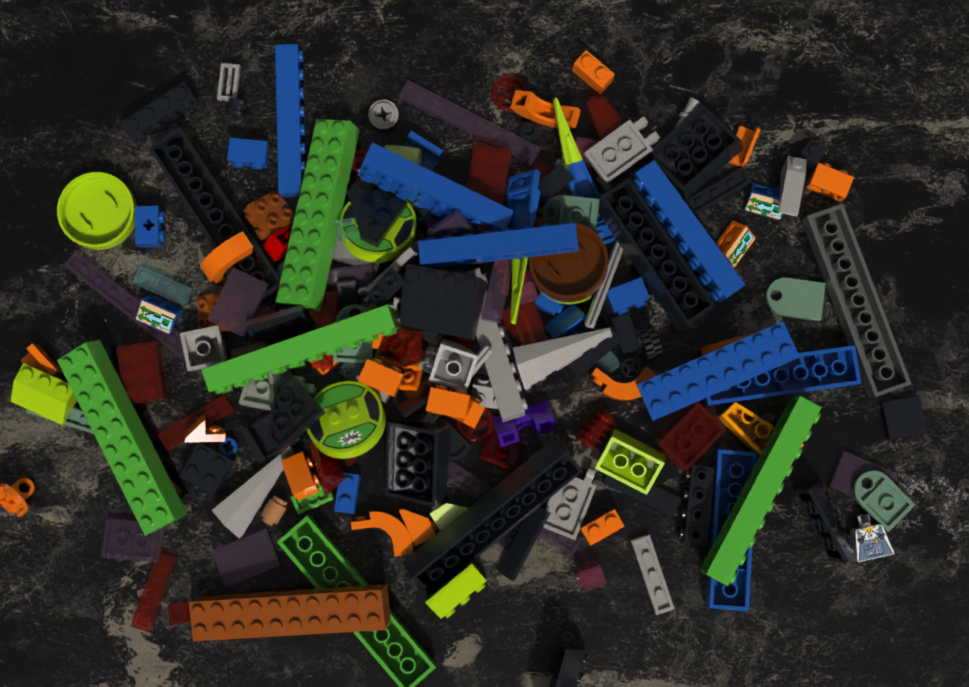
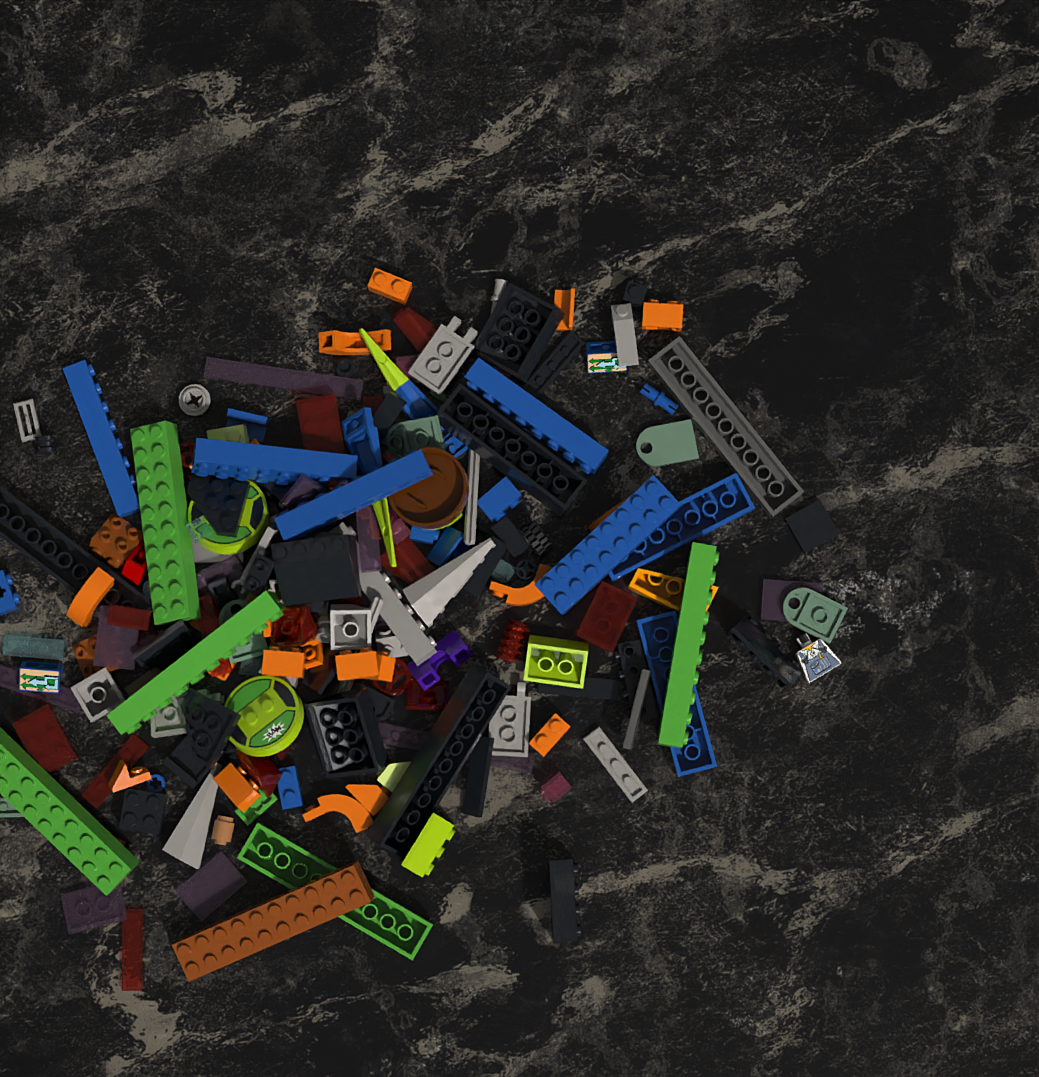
camera: 15 degrees left, 0 degrees up
(179, 613) = (164, 962): clear red tile -> none
(248, 153) = (73, 485): blue brick -> none
(254, 287) = (129, 617): none -> clear red plate
(509, 86) = (311, 328): clear red piece -> none
(692, 532) = (637, 709): none -> dark grey tile
(735, 242) = (588, 410): panel -> none
(802, 255) = (659, 398): none -> blue pin

